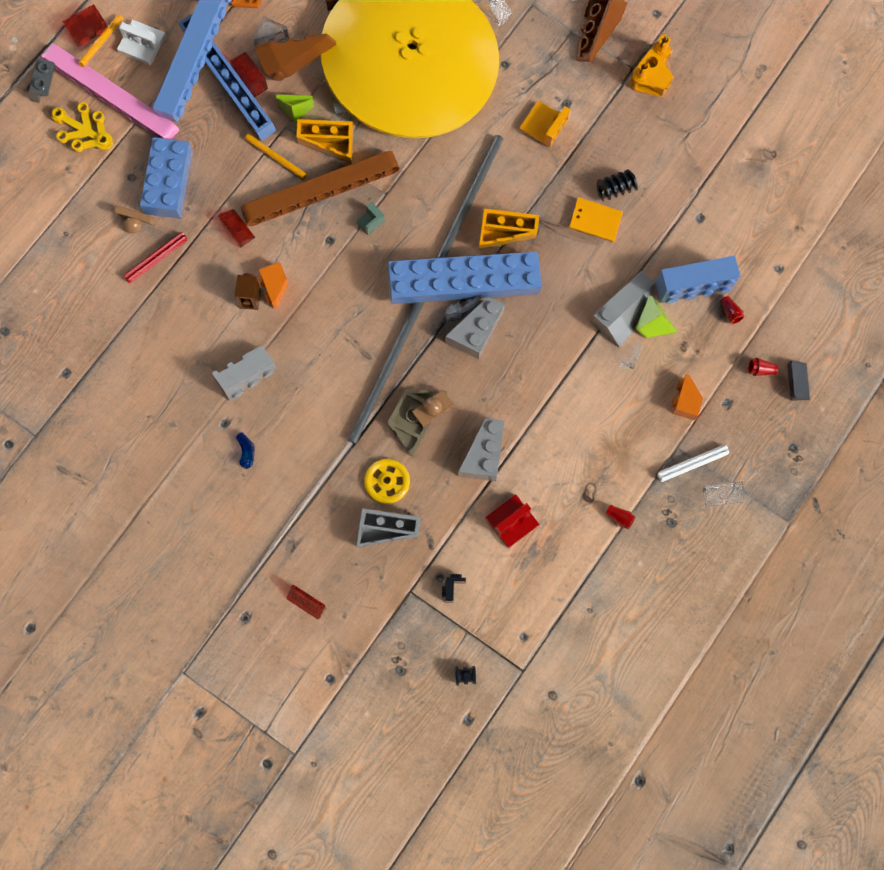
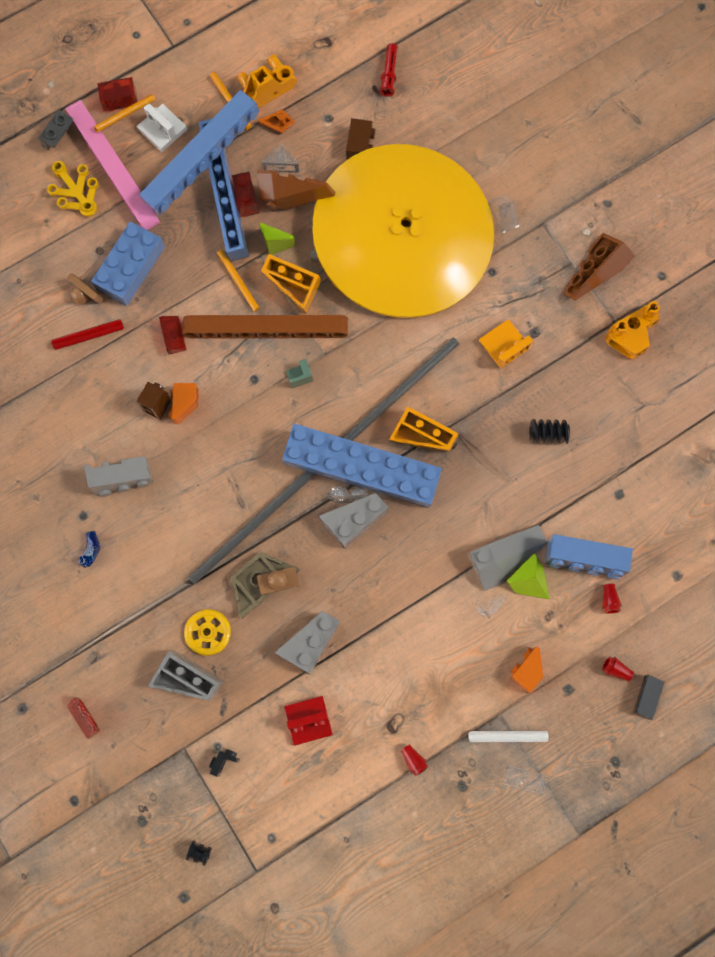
camera: 30 degrees right, 0 degrees up
(596, 219) = (515, 457): light orange container -> none

